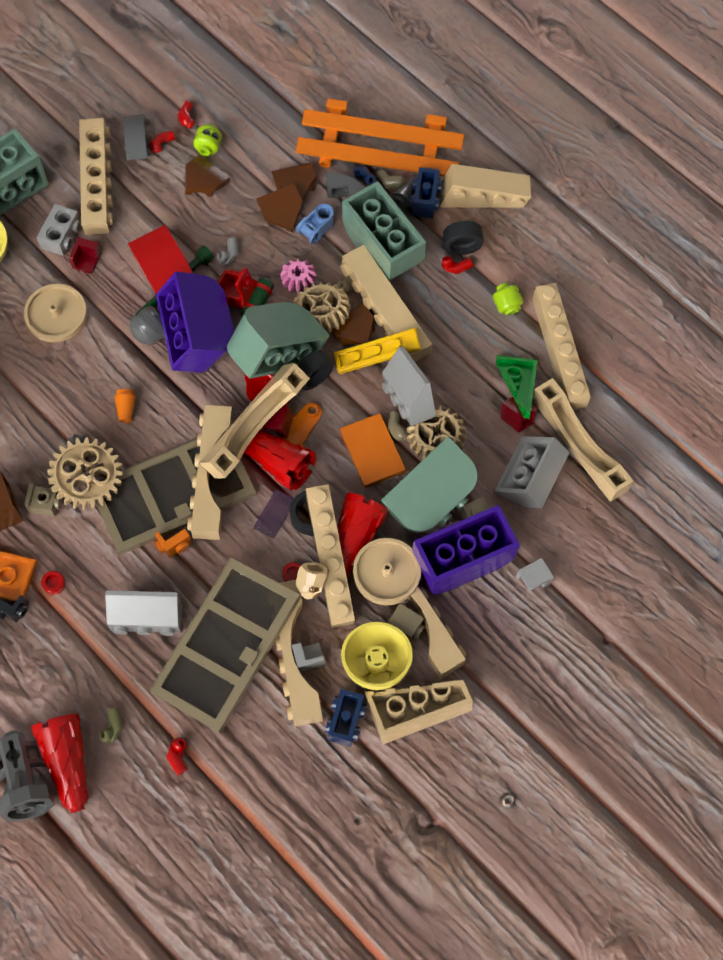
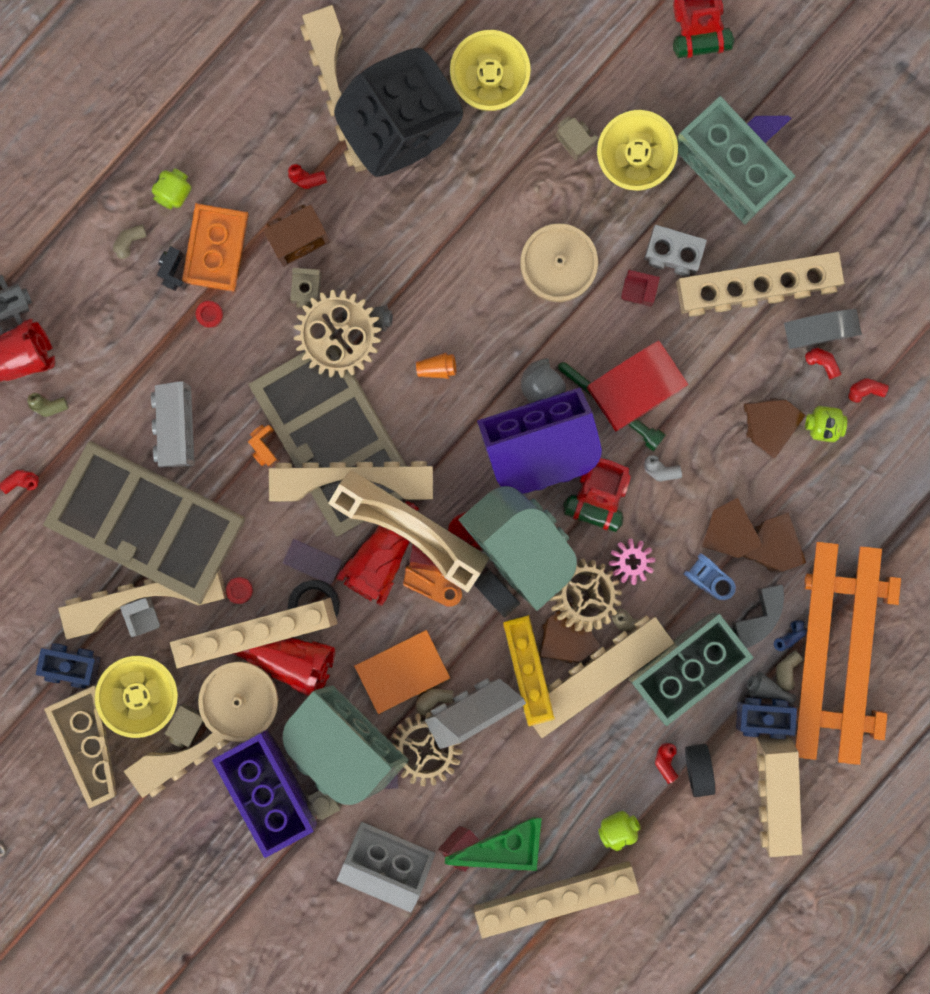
camera: 85 degrees right, 20 degrees up
(311, 579) = (217, 616): tan rock -> none
(535, 575) = (252, 874): light grey panel -> none
(604, 470) = (429, 924): tan arch -> none

